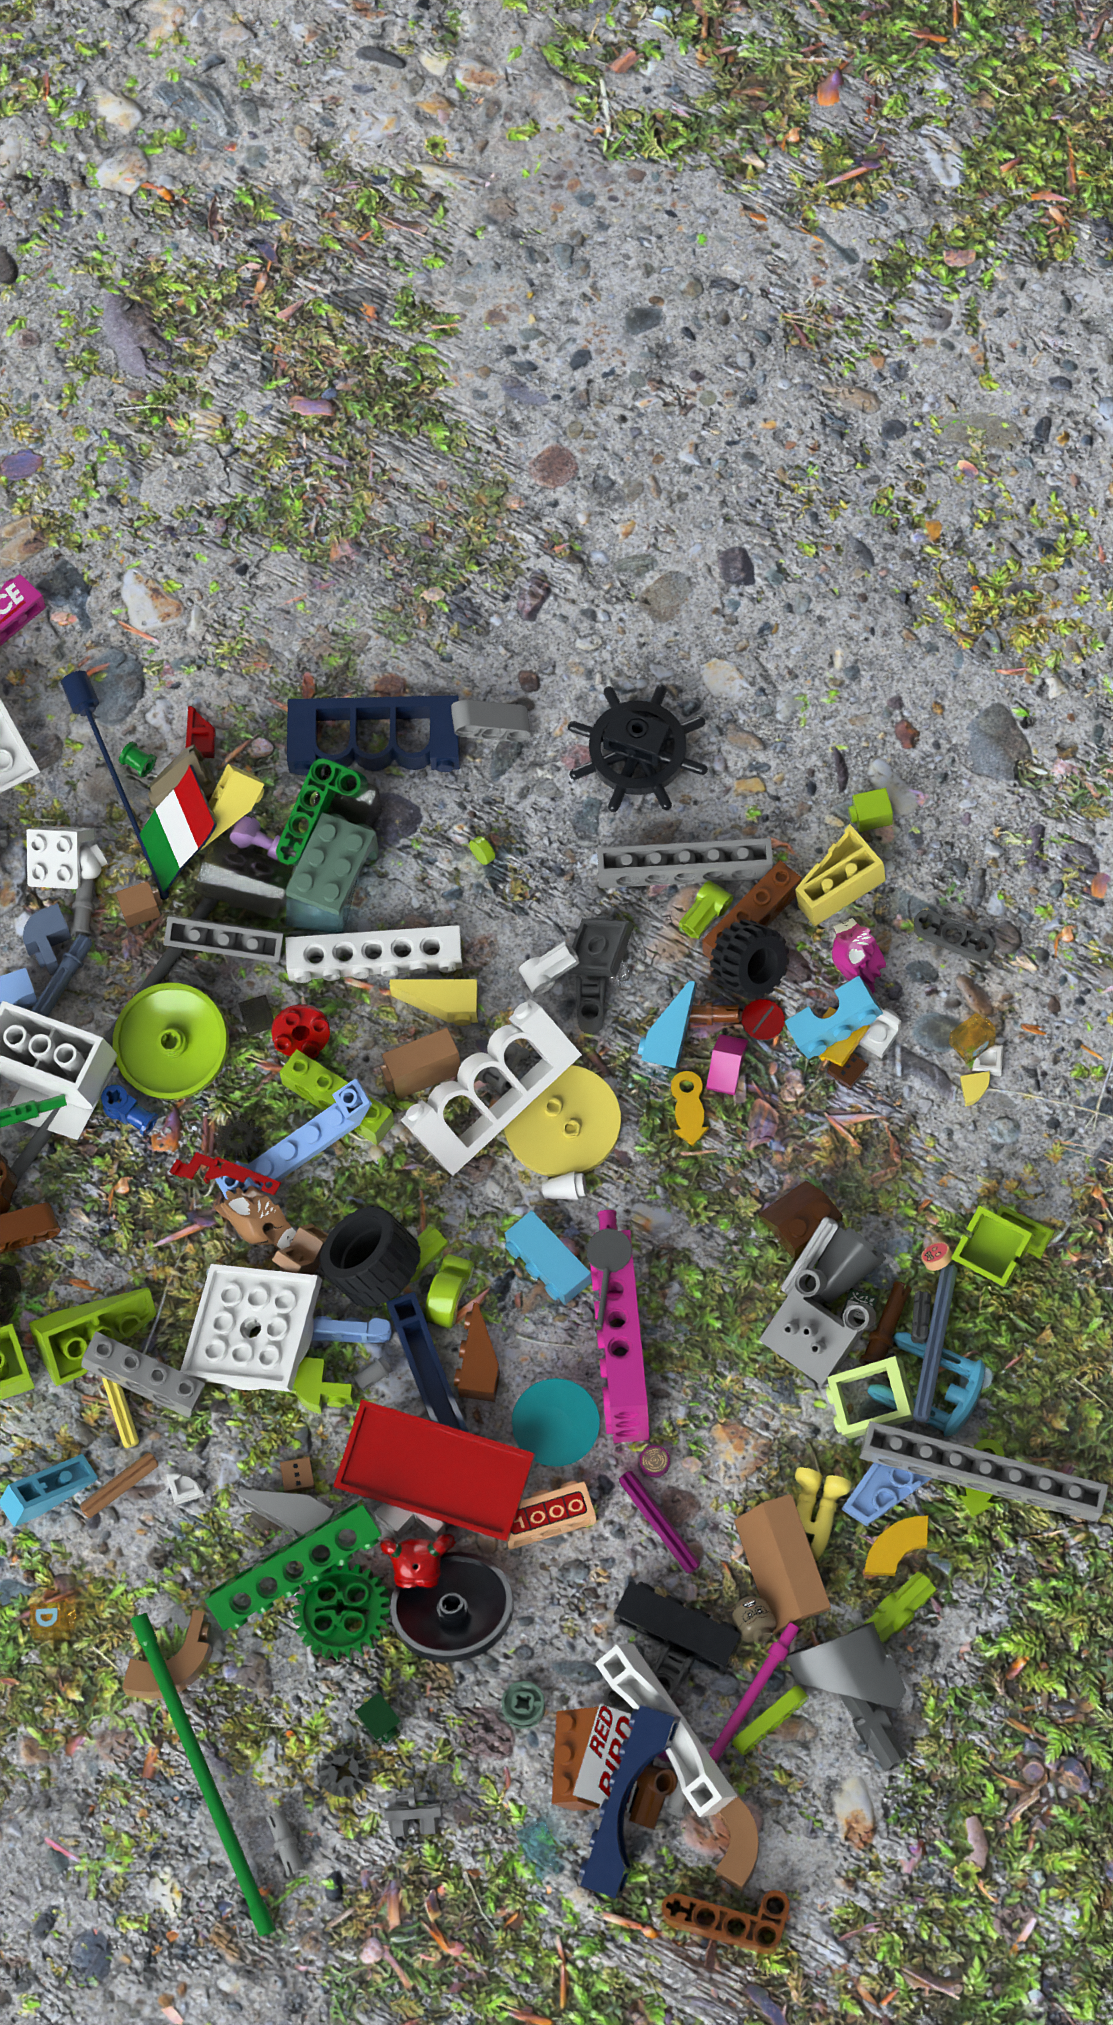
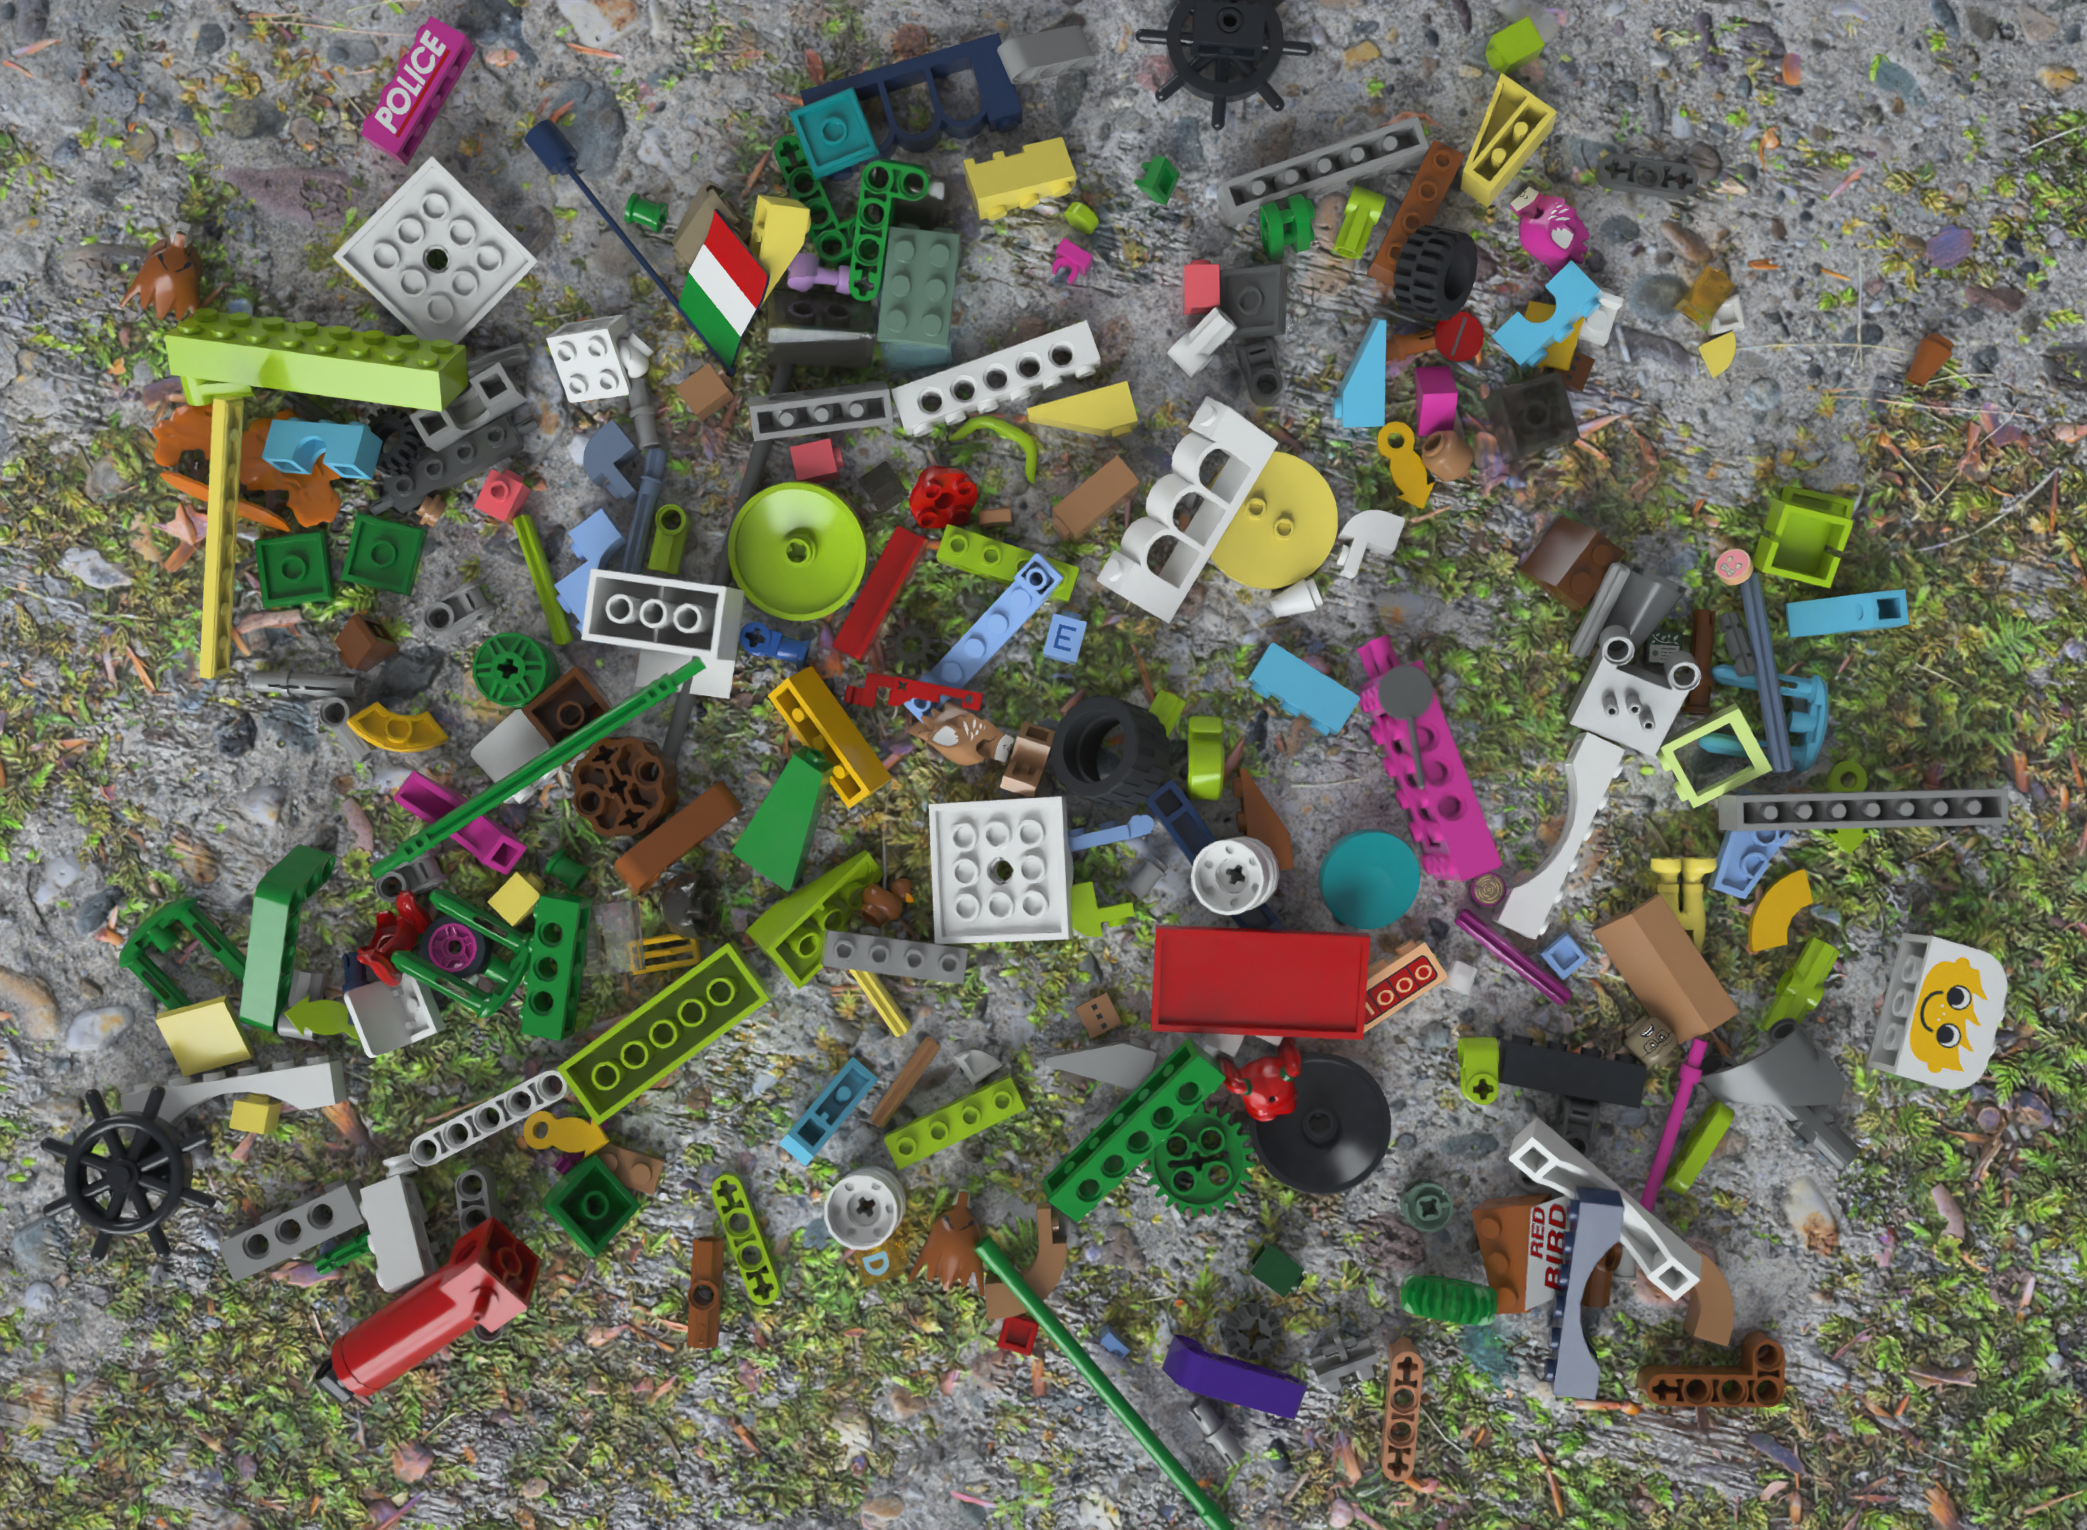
camera: 20 degrees left, 20 degrees up
(43, 1555) = (866, 1227): none -> white wheel
(70, 1009) = (669, 544): none -> lime piece
(92, 1243) = (786, 822): none -> green slope
(111, 1624) = (951, 1246): none -> dark orange piece
(145, 1718) = (1018, 1334): none -> red tile
(148, 1190) = (825, 726): none -> yellow brick
(148, 1336) = (881, 905): none -> dark orange animal
(149, 1523) = (954, 1121): none -> lime brick
(200, 734) = (709, 161): red tile -> none
(210, 978) = (817, 461): none -> coral brick
(223, 1746) = (1114, 1342): none -> medium blue tile
(227, 1095) = (880, 594): none -> red panel
(273, 783) = (817, 201): none -> green beam
(303, 735) = (834, 133): none -> teal tile
(316, 1799) = (1232, 1379): none -> dark purple beam
(340, 1060) = (996, 517): none -> medium nougat tile
(364, 1166) = (1065, 637): none -> light blue brick
(369, 995) = (1007, 430): none -> lime animal
(440, 807) = (1020, 178): none -> light yellow wedge
(440, 1377) = (1217, 881): none -> white wheel
(444, 1869) = (1398, 1412): none -> nougat beam
(465, 878) = (1074, 258): none -> dark pink tile
(514, 1774) = (1449, 1299): none -> green gear
(553, 837) = (1159, 179): none -> green tile
(560, 925) = (1200, 287): none -> coral brick
(601, 1600) = (1478, 1063): none -> lime piece
(608, 1526) = (1460, 978): none -> white hose
(638, 1148) = (1371, 531): none -> white brick
(653, 886) = (1298, 226): none -> green brick
(685, 1476) = (1589, 772): none -> white arch
(703, 1533) = (1563, 955): none -> light blue tile
(722, 1106) = (1447, 455): none -> medium nougat head
(799, 1094) = (1531, 418): none -> clear smoke brick
(1002, 1658) = (1940, 1013): none -> white brick
(1019, 1316) = (1847, 614): none -> medium azure slope

